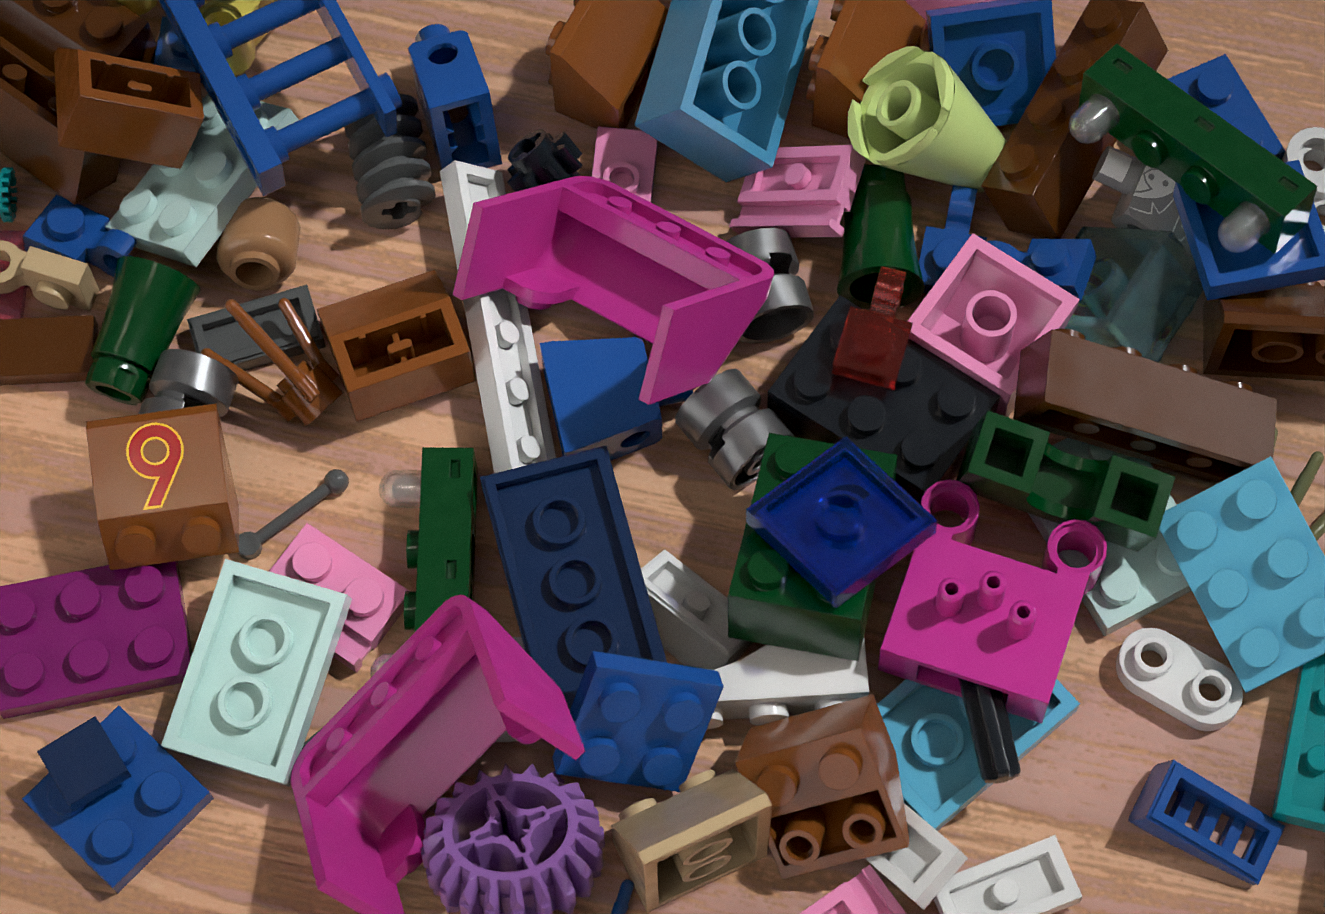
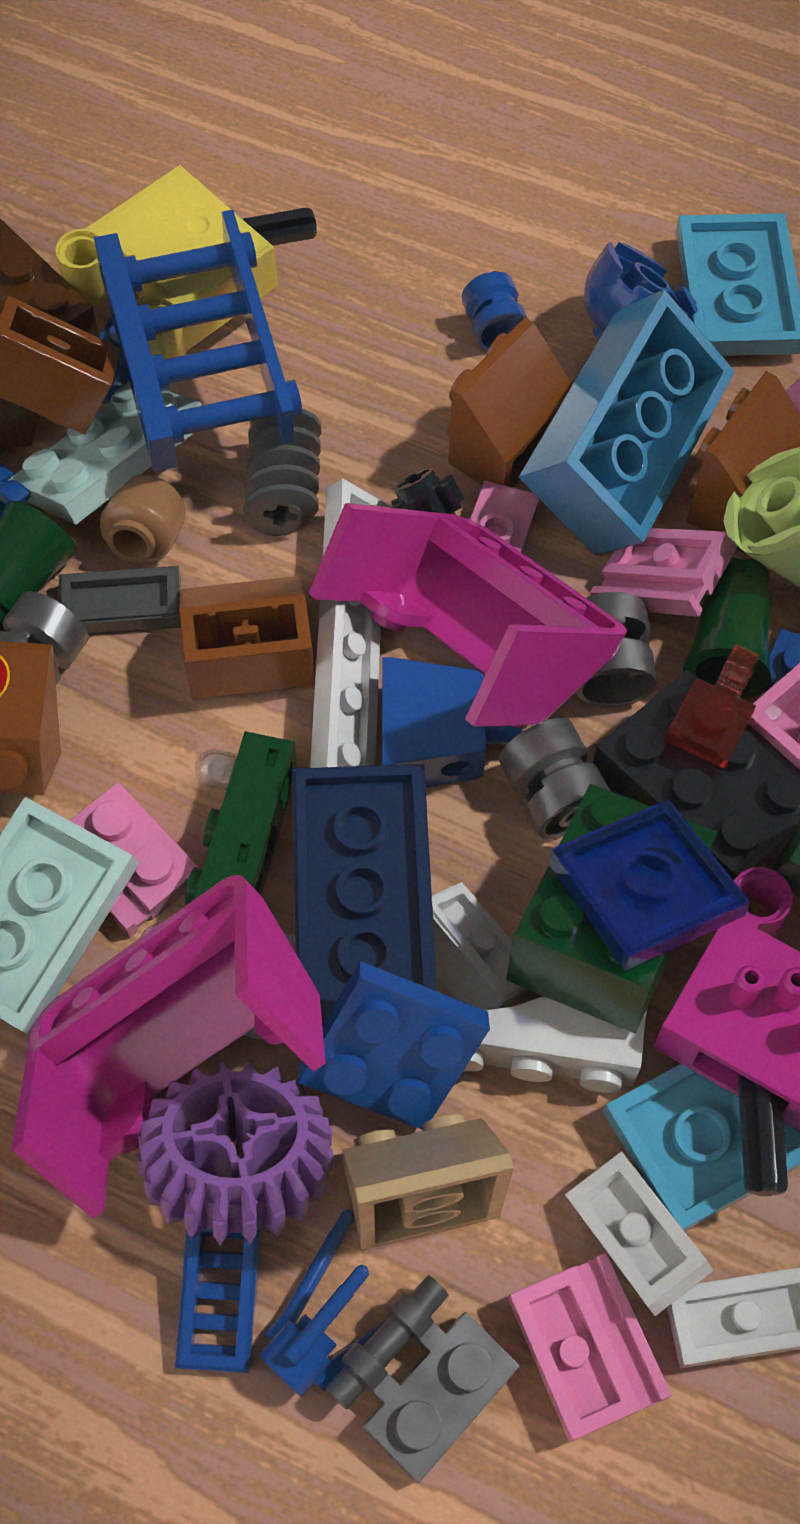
camera: 10 degrees right, 5 degrees down
(250, 543) = (60, 792): dark grey hinge -> none
(305, 389) = (150, 659): dark orange plant -> none
(448, 78) = (356, 407): blue torso -> none
(828, 786) = (578, 1159): dark orange slope -> none

